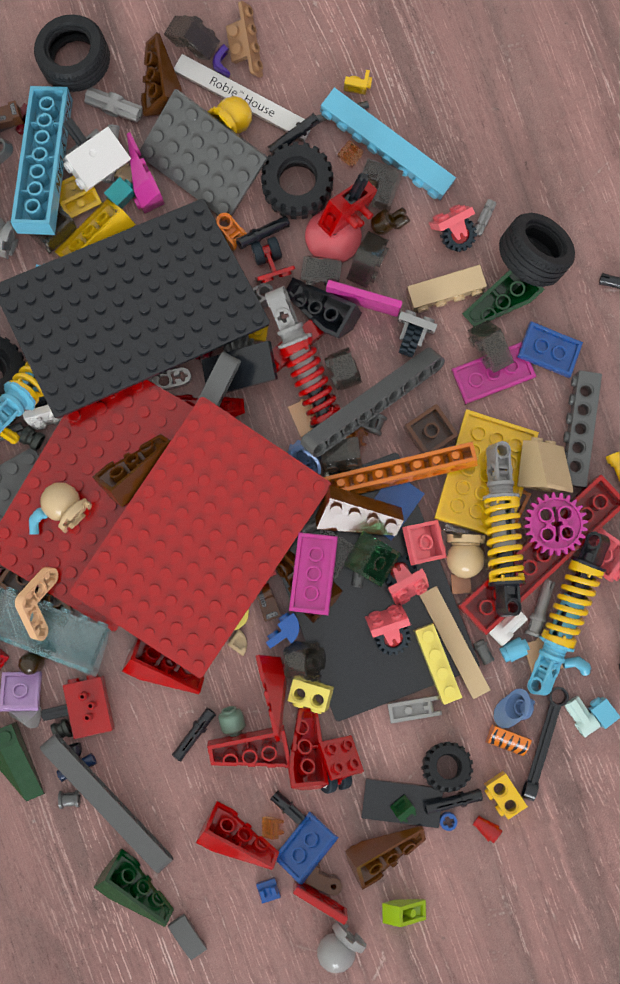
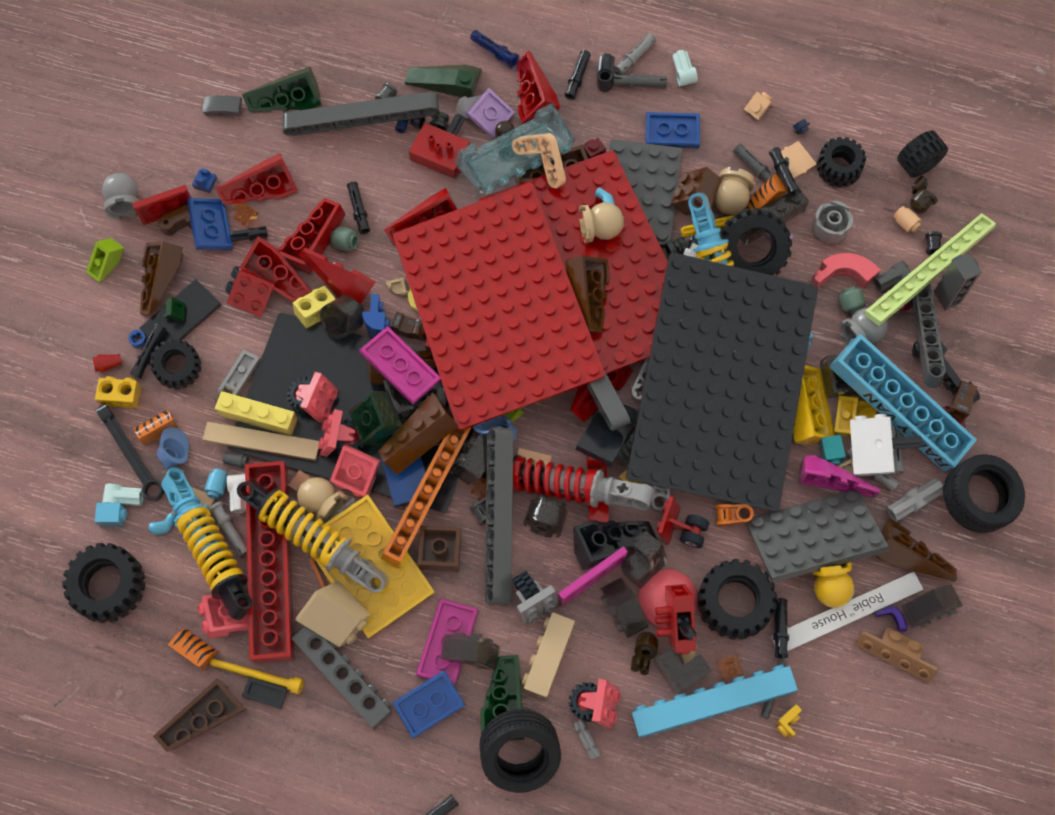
camera: 130 degrees right, 15 degrees down
(258, 234) = (712, 538): black pin -> none
(572, 522) = (271, 596): dark pink gear -> none

